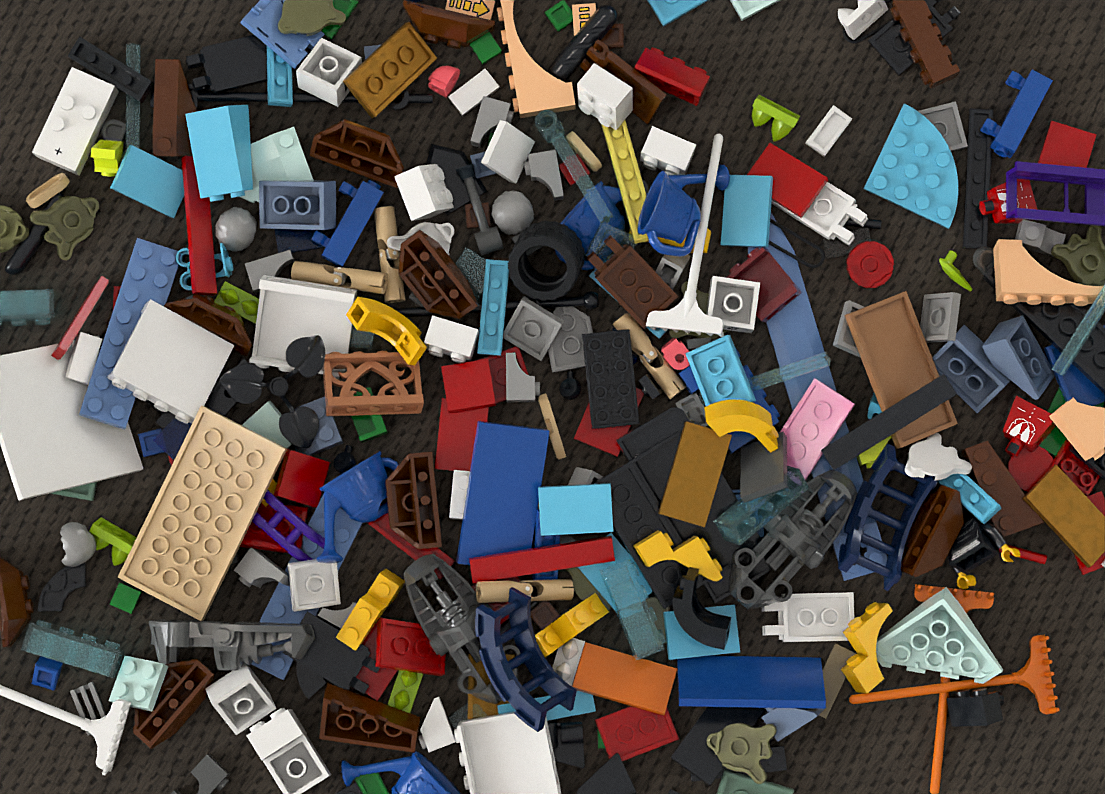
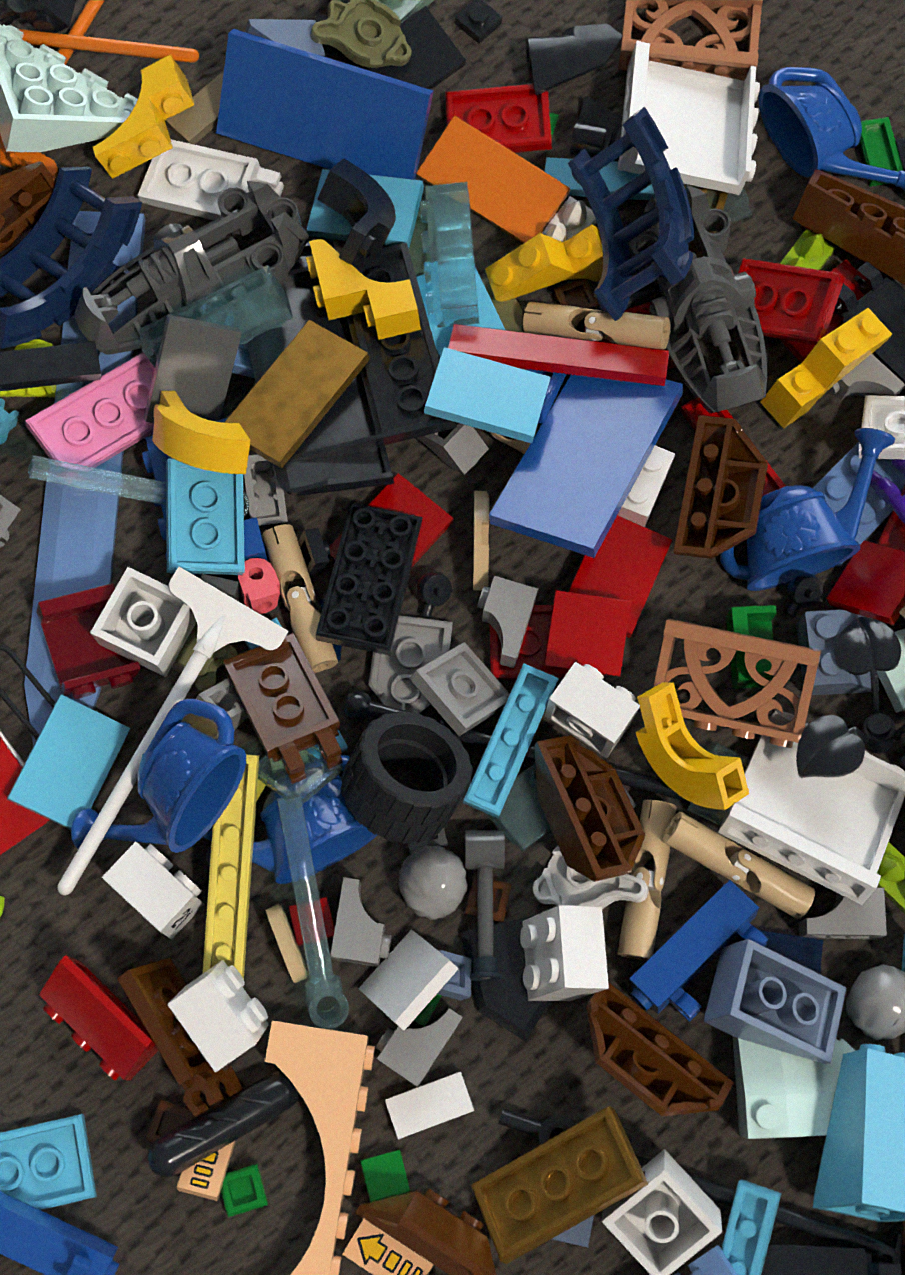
camera: 165 degrees left, 10 degrees down
(436, 728) = (773, 198): white slope -> none
(443, 79) = (472, 1142): coral piece -> none

